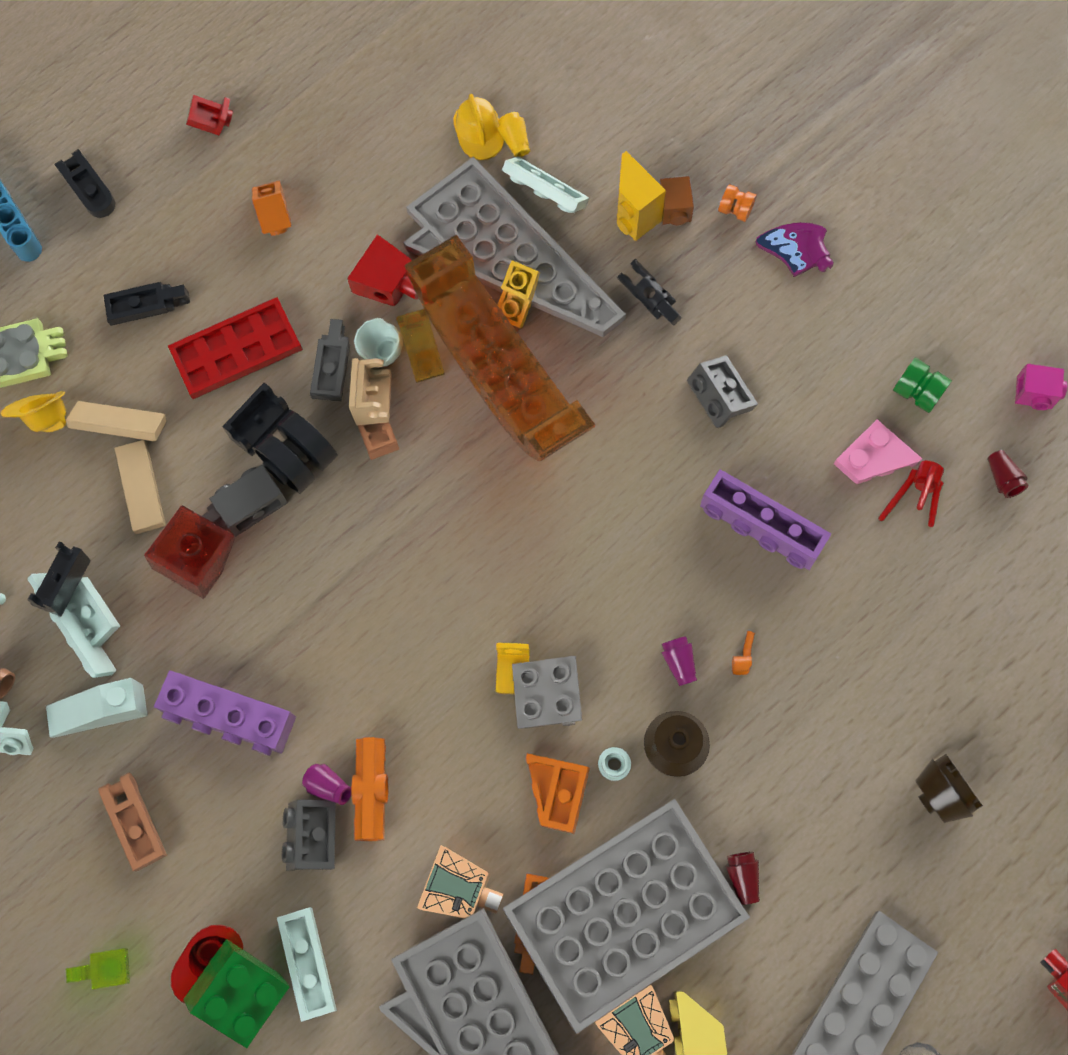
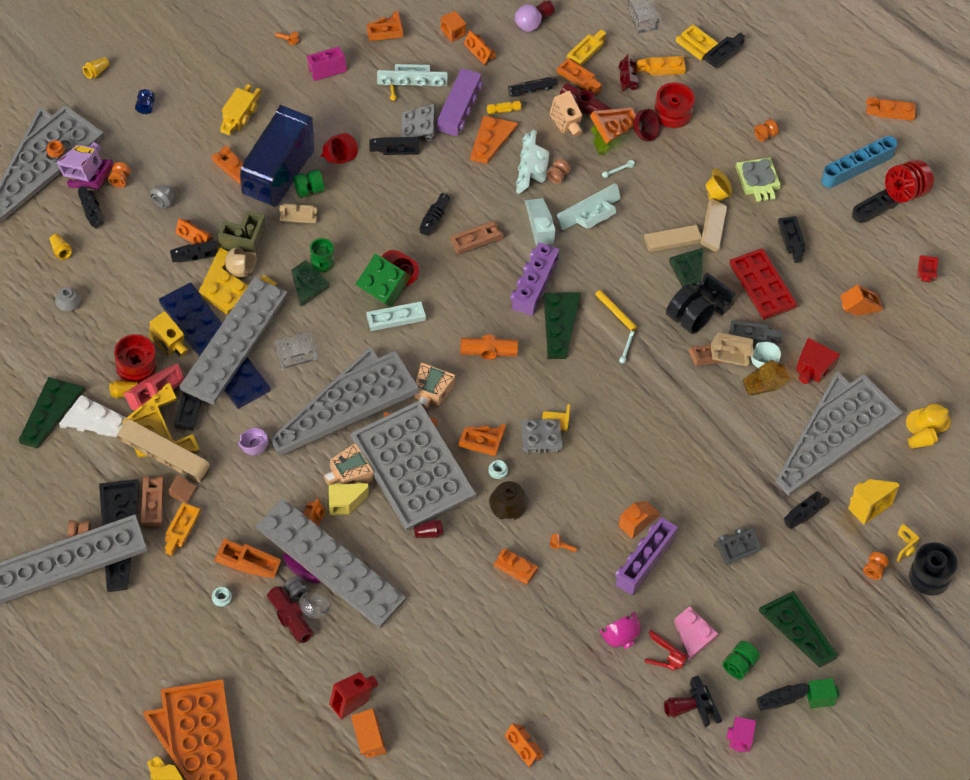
camera: 85 degrees right, 15 degrees down
(48, 123) = (909, 181): none -> red wheel
(60, 580) = (611, 196): black hinge -> none
(80, 903) = (434, 215): none -> black hinge
(104, 971) = (399, 226): clear neon green plate -> none
(191, 551) = (629, 258): clear red slope -> none
(204, 460) = (688, 267): none -> clear green wing
(245, 501) = (659, 285): dark grey hinge -> none
(287, 576) = (616, 310): none -> yellow bar
(305, 669) = (559, 322): none -> dark green wing
(309, 835) = (464, 318): dark grey bracket -> none
(326, 784) = (493, 324): magenta cone -> none
(384, 565) = (622, 359): none -> light aqua hinge
(494, 353) = (758, 412): clear orange slope -> none
(518, 292) = (799, 430): yellow slope -> none
(545, 185) = (885, 453): light aqua plate -> none
(678, 201) = (875, 529): dark orange brick -> none
(680, 659) = (559, 507): magenta cone -> none
(688, 534) = (637, 518): none -> orange slope
(701, 157) = (912, 543): none -> yellow bracket
(741, 126) = (933, 568): none -> black wheel
(792, 728) = (515, 566): none -> orange plate
(797, 246) = (845, 602): magenta arm -> none
(846, 310) = (799, 627): none -> dark green wing
(898, 558) = (622, 632): none -> dark pink cylinder
(946, 791) = (473, 637): dark brown cone -> none
(955, 279) = (822, 693): none -> green brick
(968, 331) = (782, 696): none -> black hinge
(992, 439) = (704, 701): none -> black hinge

